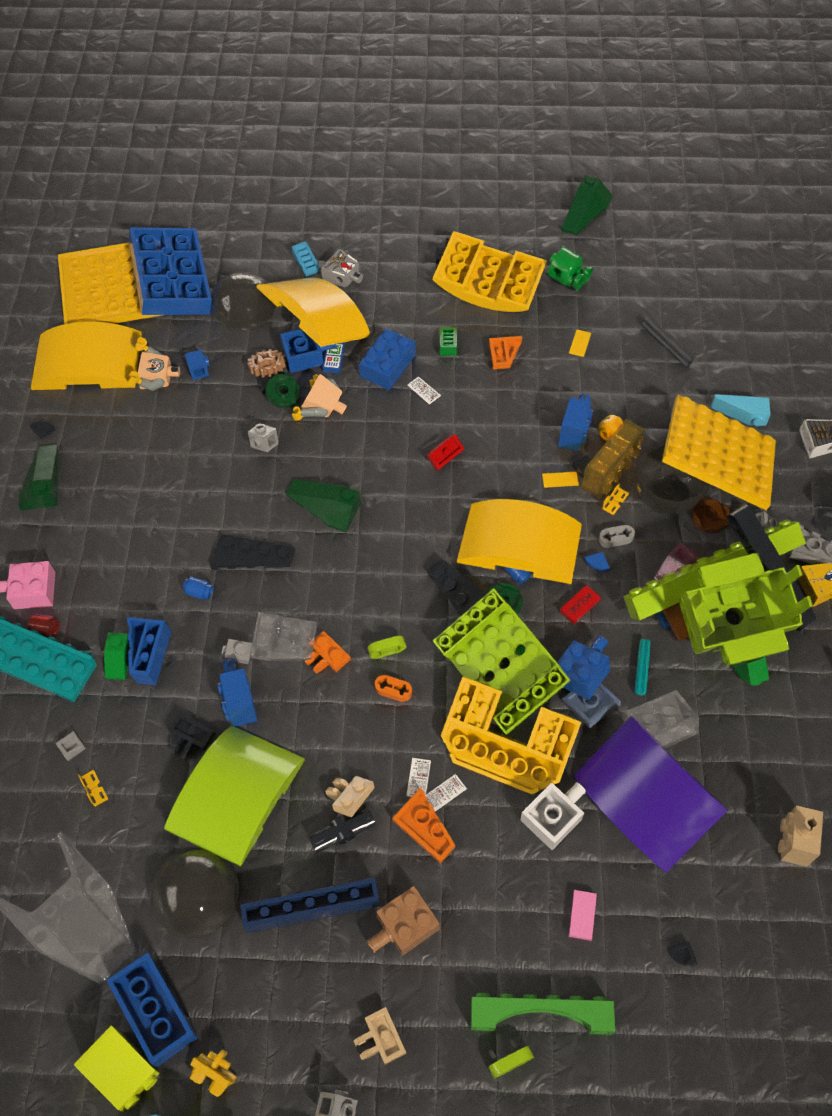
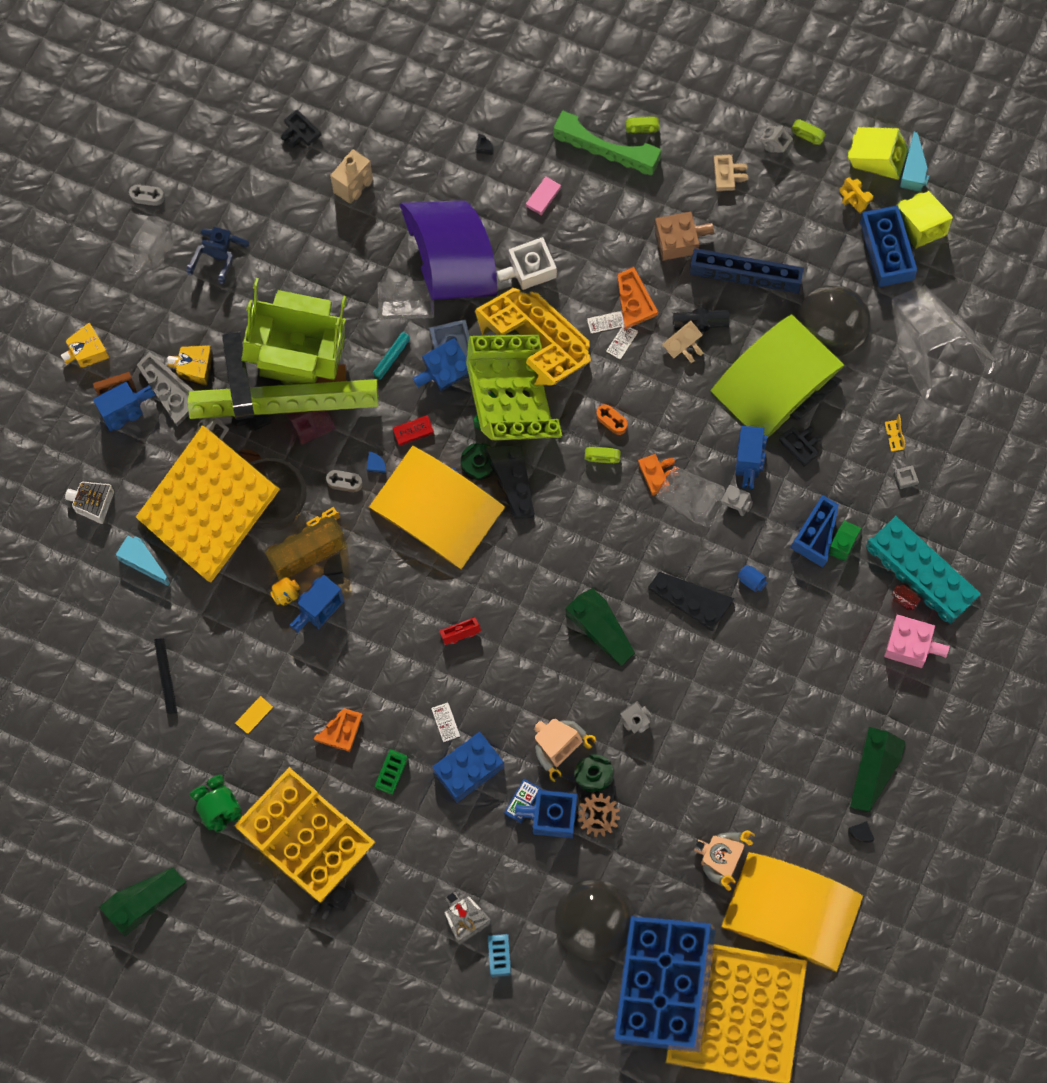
camera: 155 degrees left, 10 degrees up
(197, 364) = (673, 847): blue brick -> none
(322, 308) = (520, 859): yellow slope -> none
(560, 479) = (362, 563): yellow sticker -> none

